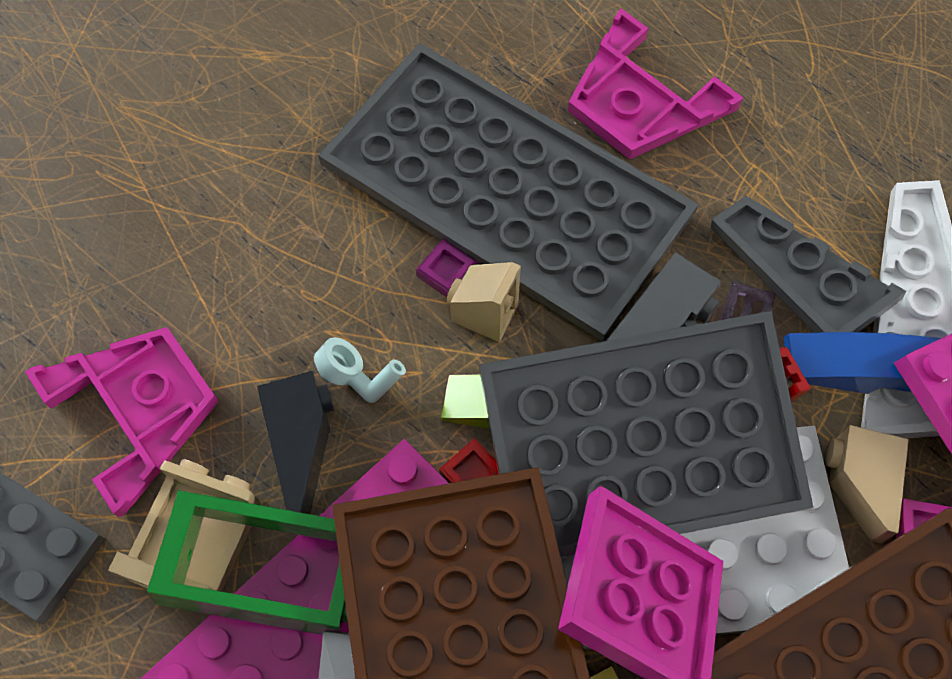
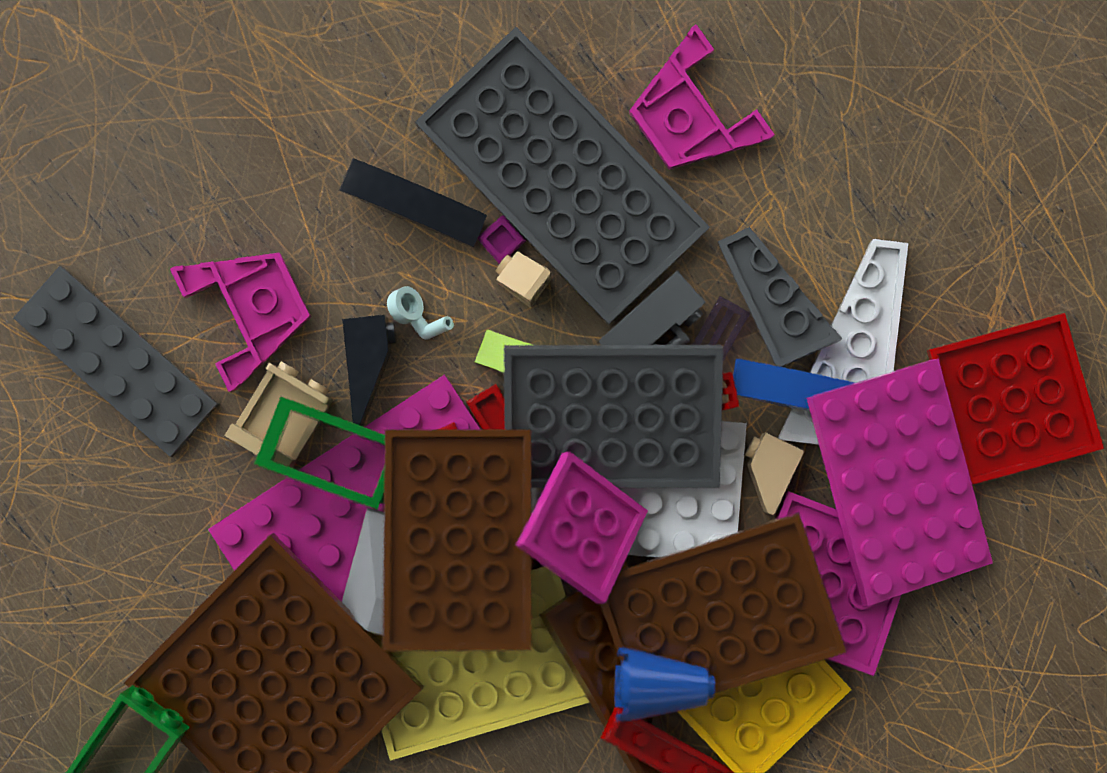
camera: 10 degrees right, 20 degrees up
(329, 240) = (412, 202): none -> black slope

